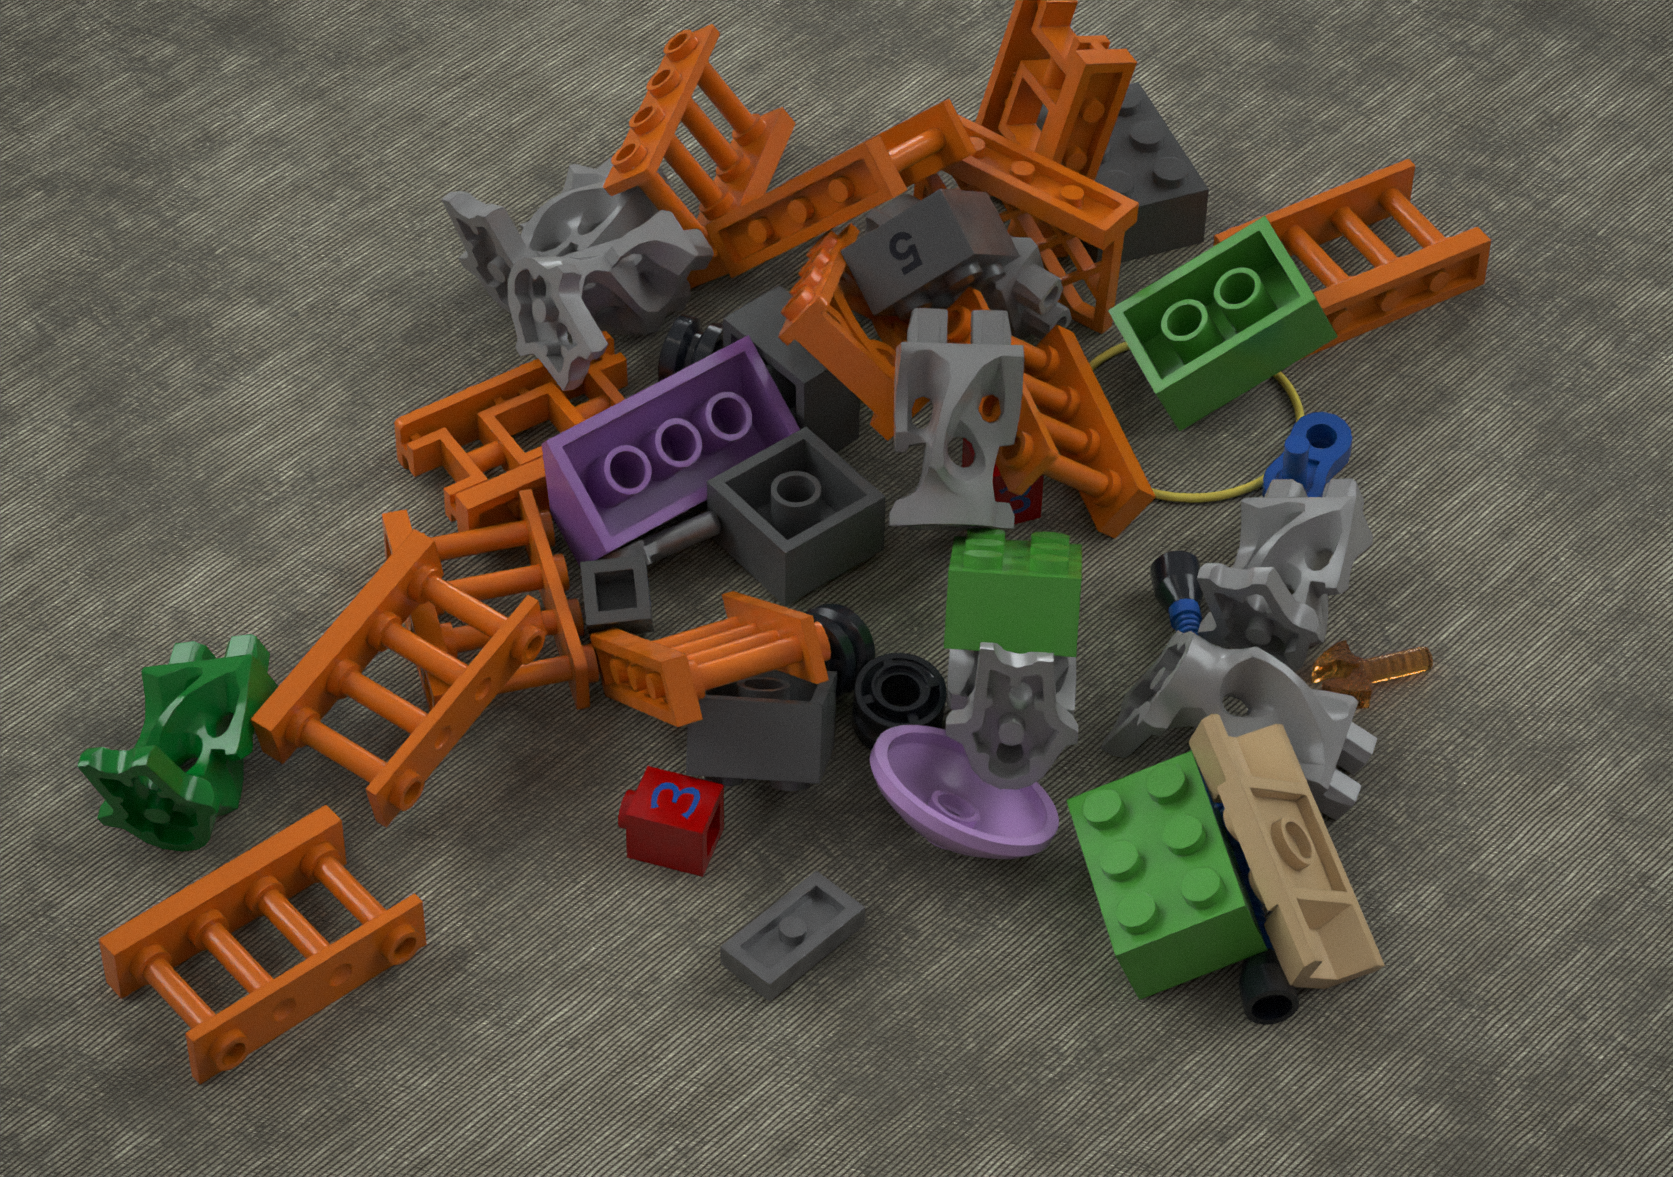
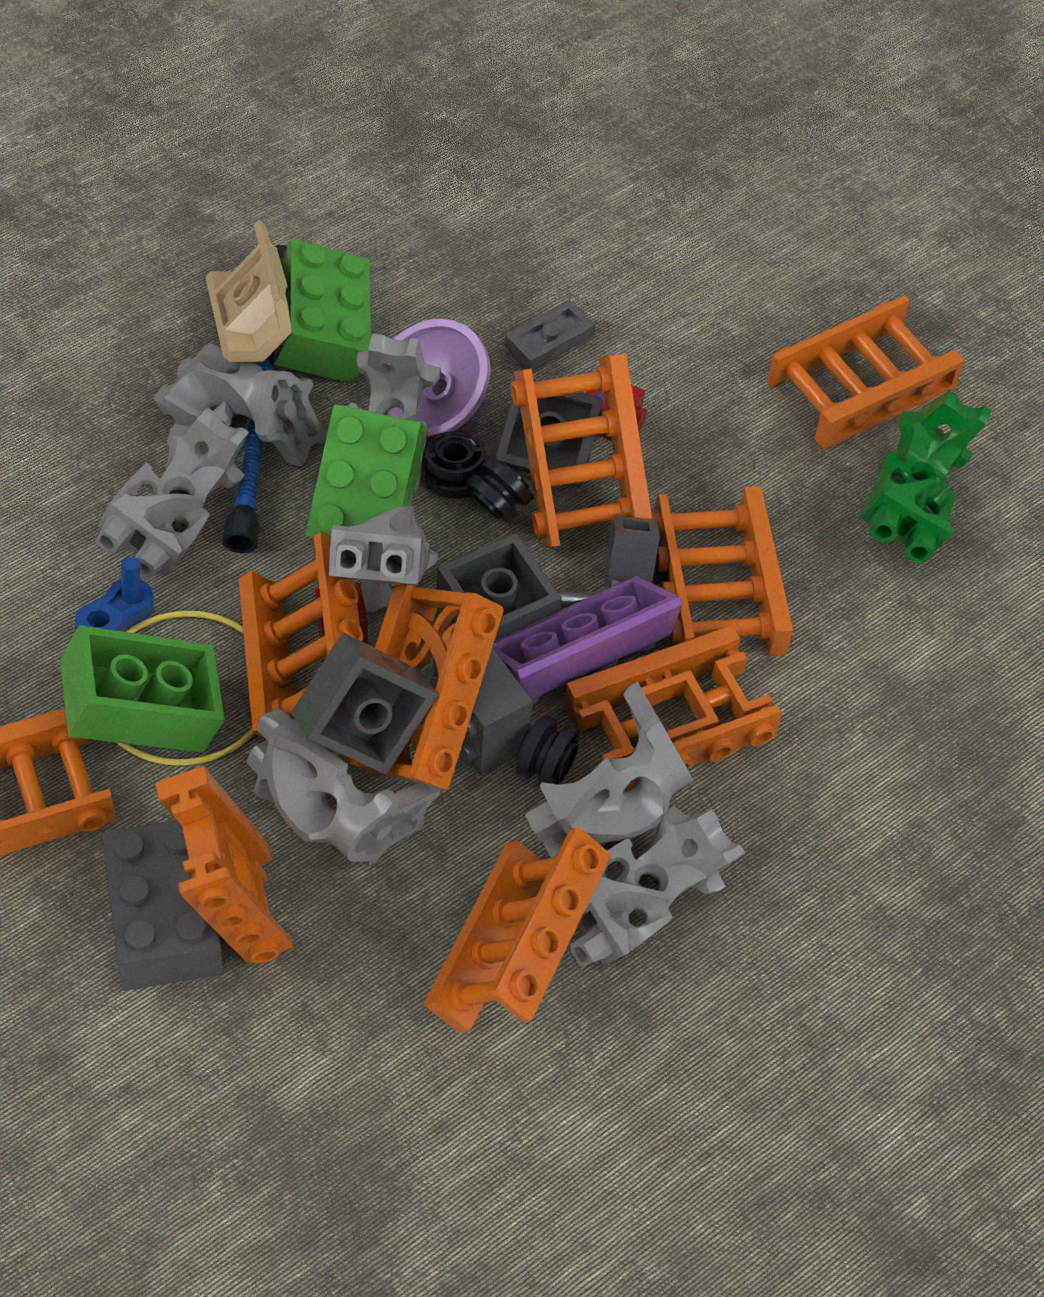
camera: 175 degrees left, 10 degrees up
(373, 625) = (798, 522): orange fence -> none
(840, 188) = (433, 770): orange fence -> none
(1059, 196) = (273, 805): orange fence -> none
(1359, 673) = (151, 448): clear orange bar -> none

